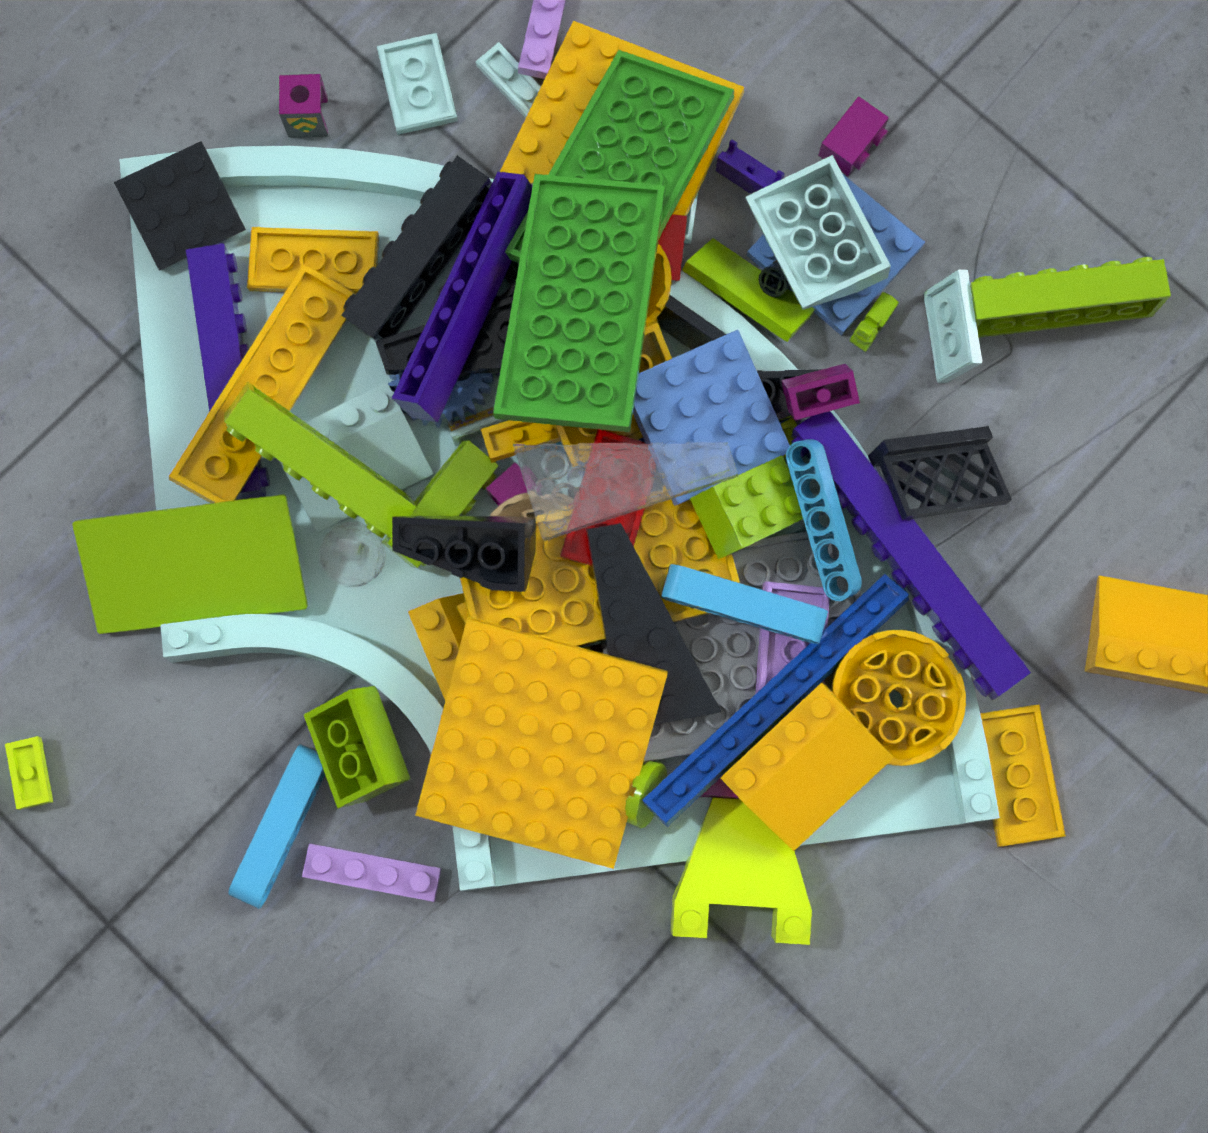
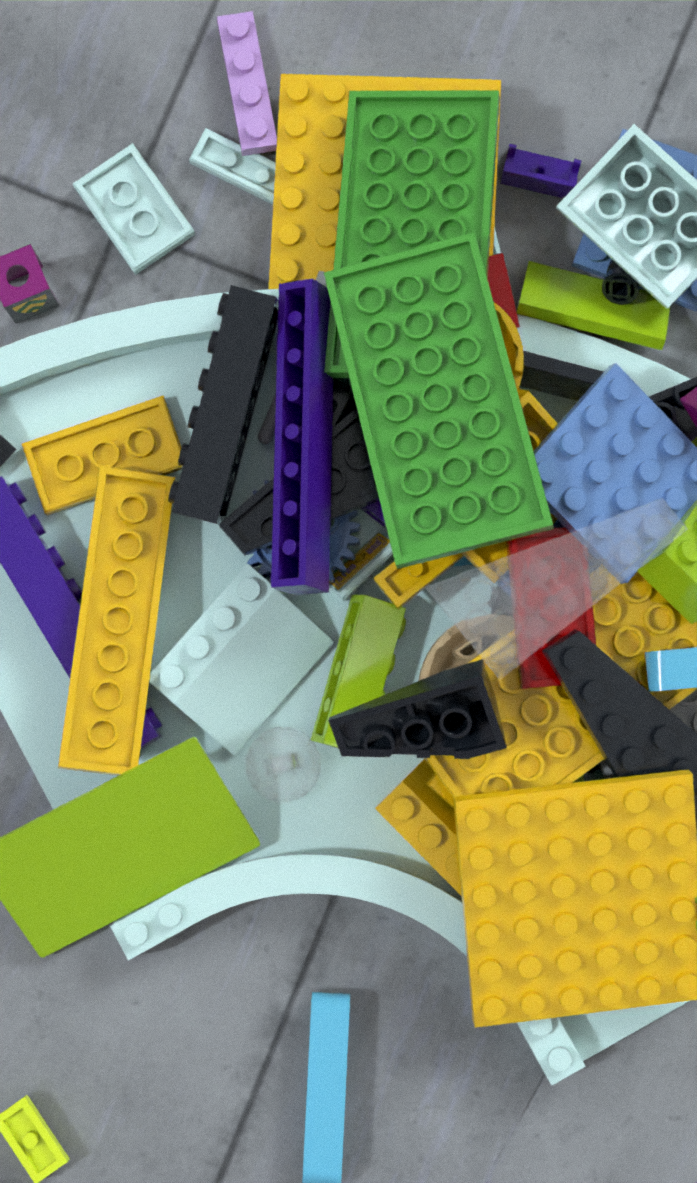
camera: 20 degrees left, 5 degrees up
(317, 459) = (214, 685): lime brick -> none
(356, 746) = (378, 975): lime brick -> none
(371, 872) = (443, 1098): lavender plate -> none
(507, 485) = (427, 625): magenta brick -> none
(854, 136) = (639, 87): magenta brick -> none

